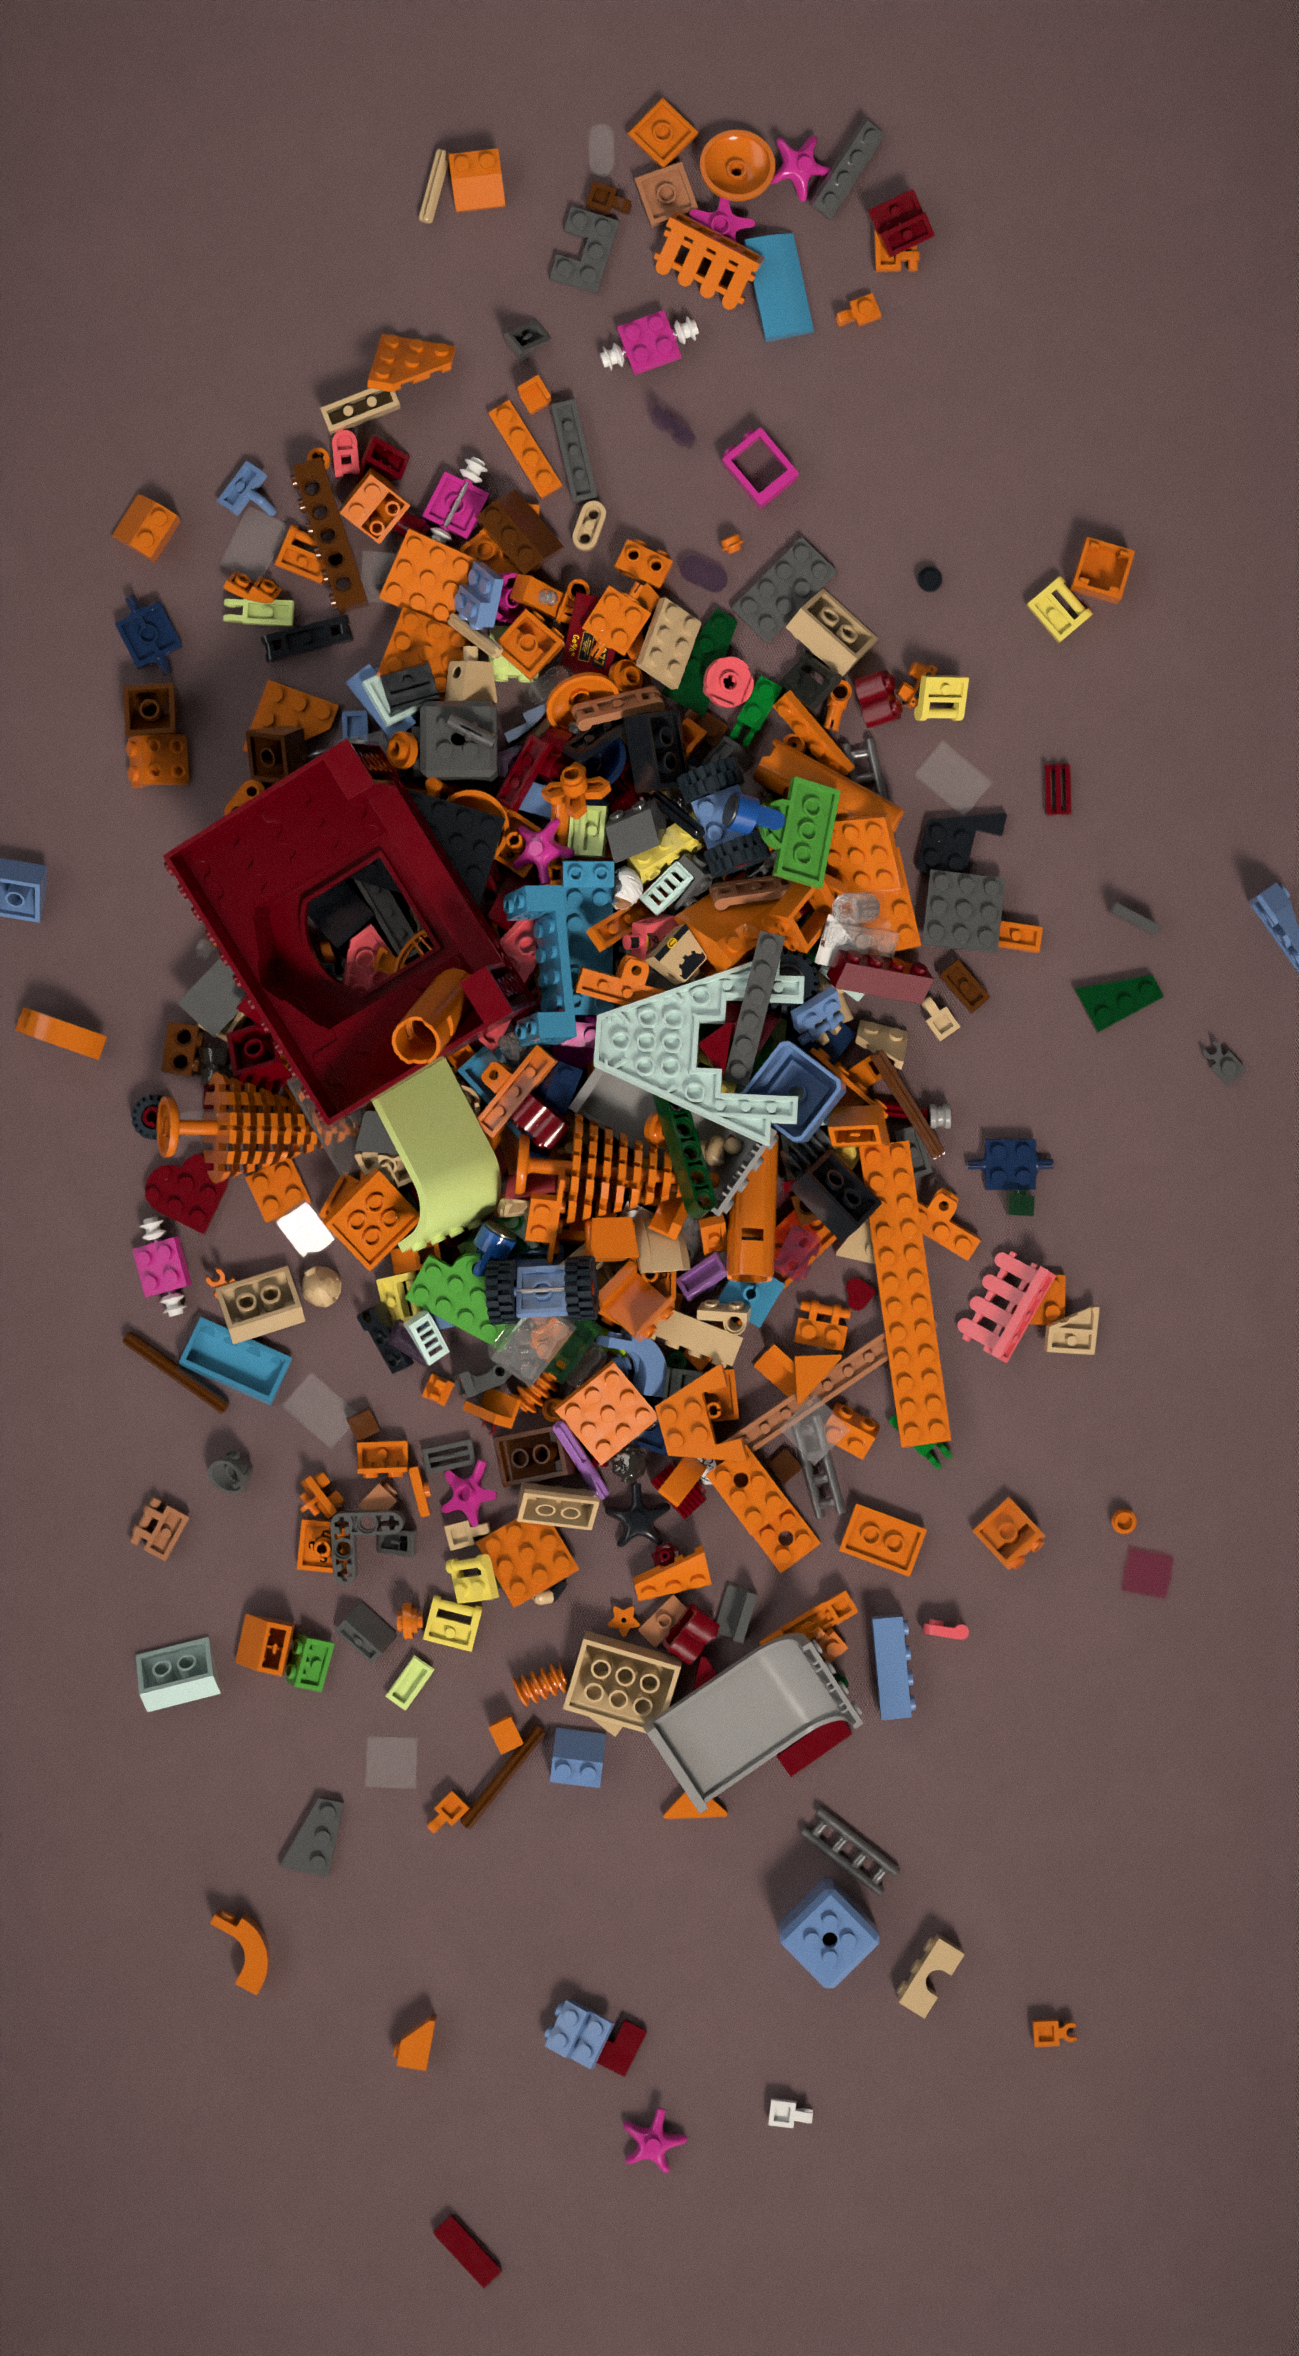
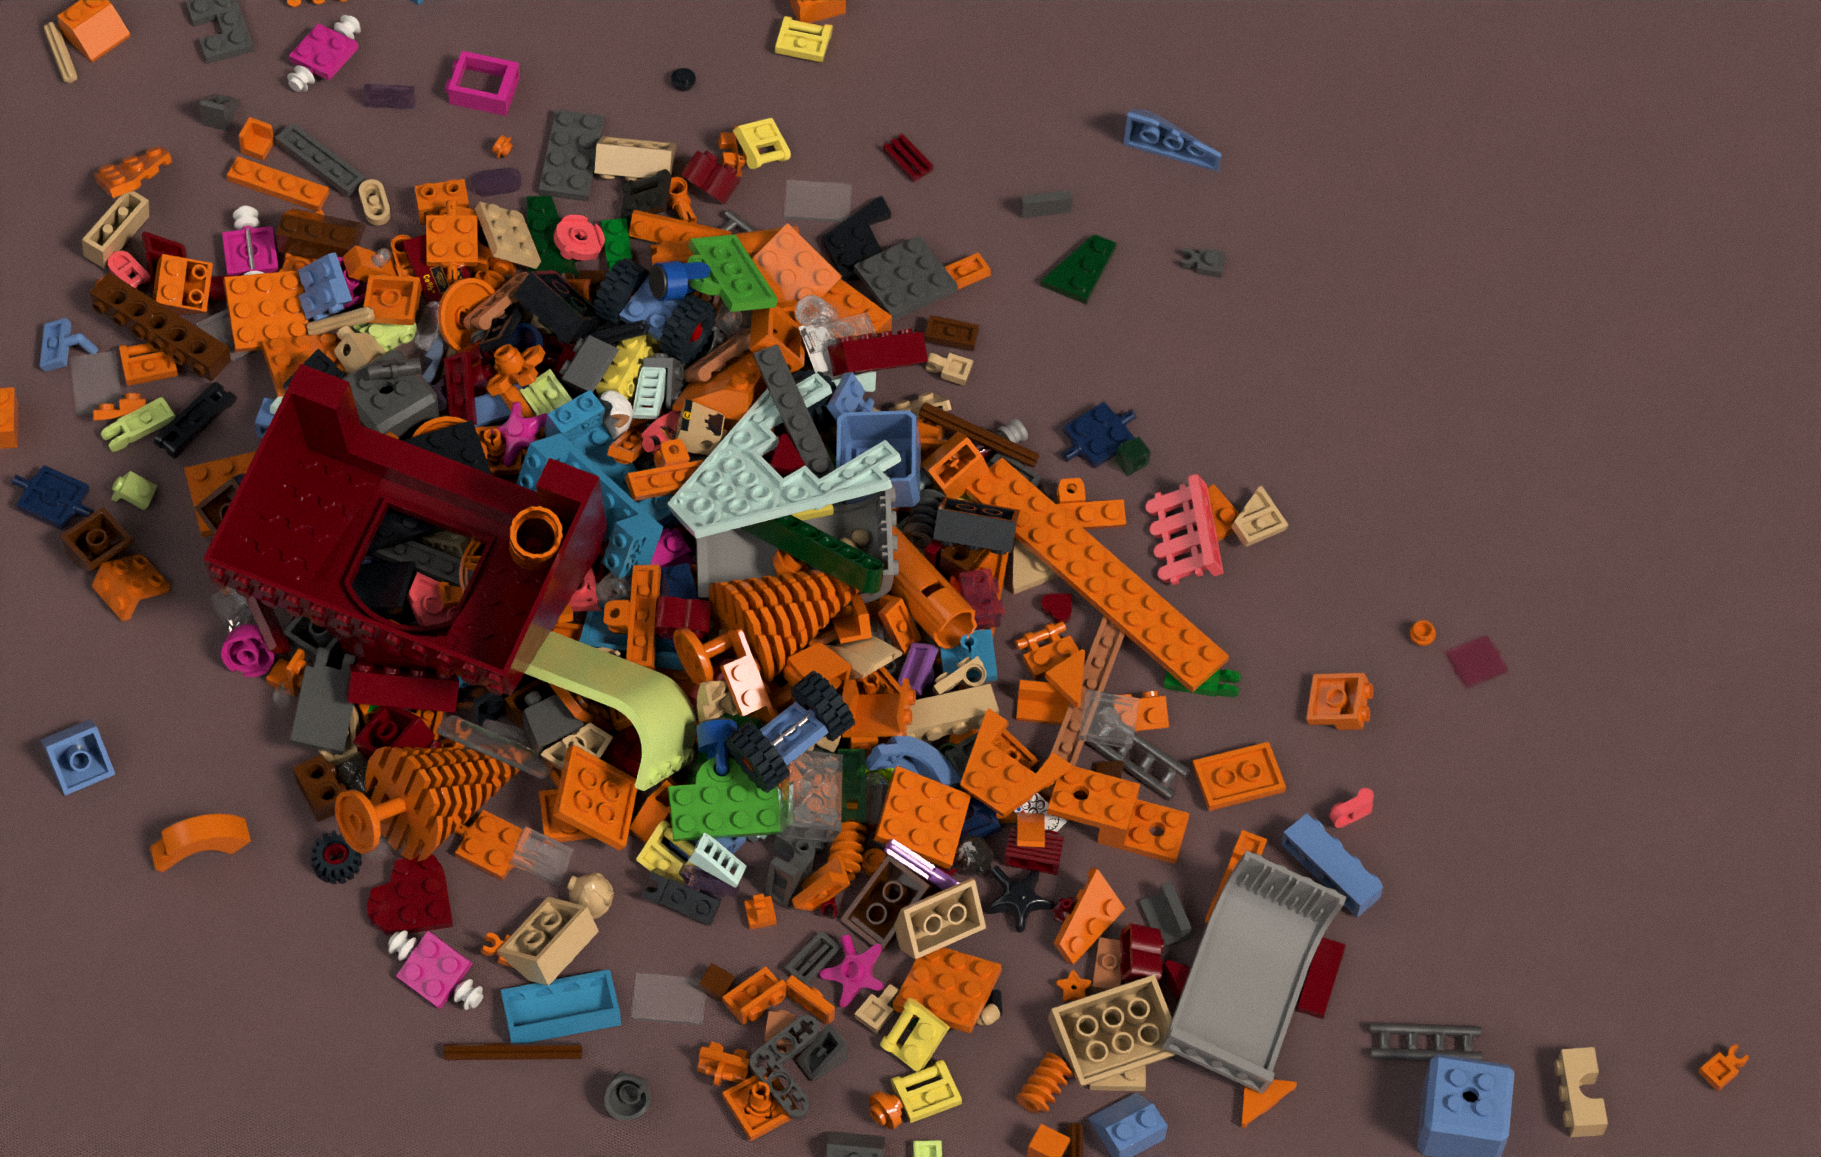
camera: 45 degrees left, 30 degrees down
(215, 673) = (134, 490): none -> yellowish green bracket

